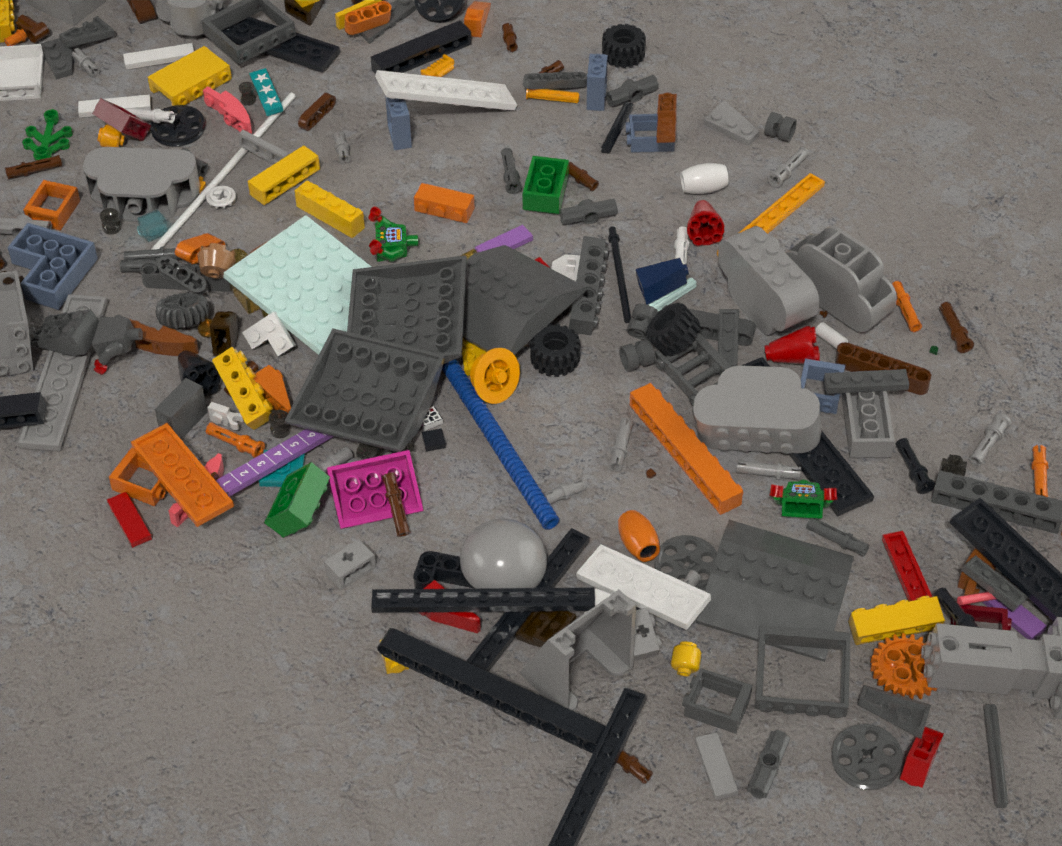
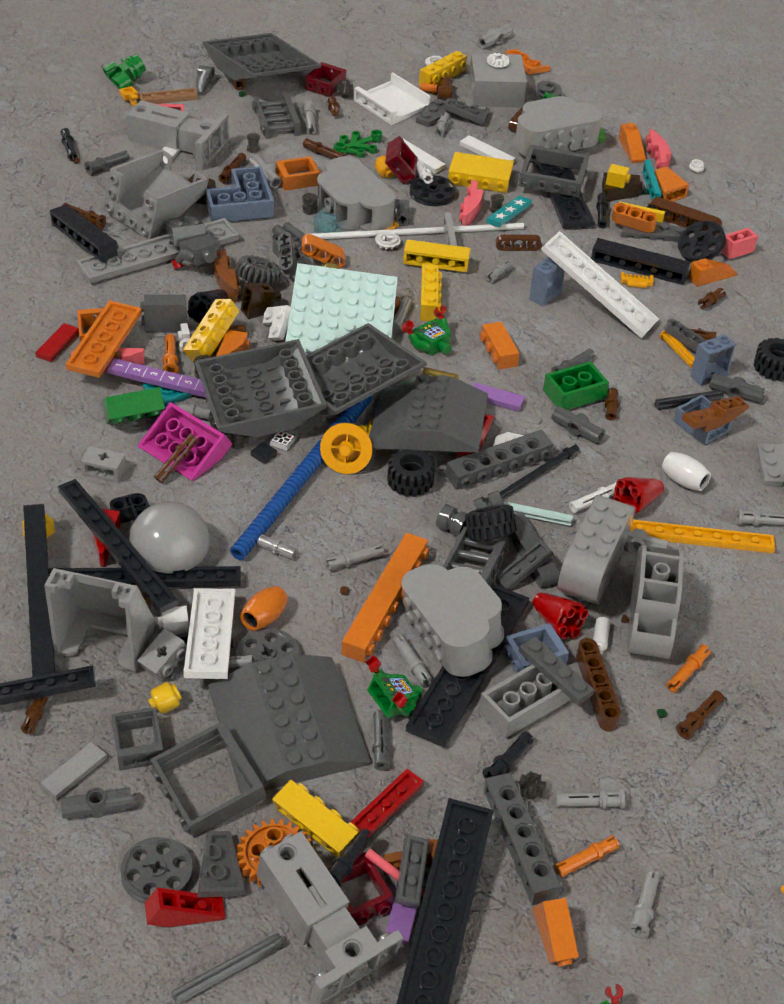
camera: 50 degrees right, 5 degrees down
(215, 260) = (307, 254): medium nougat cone -> none
(322, 30) = (602, 206): none -> black pin
(661, 279) = (545, 496): dark blue slope -> none

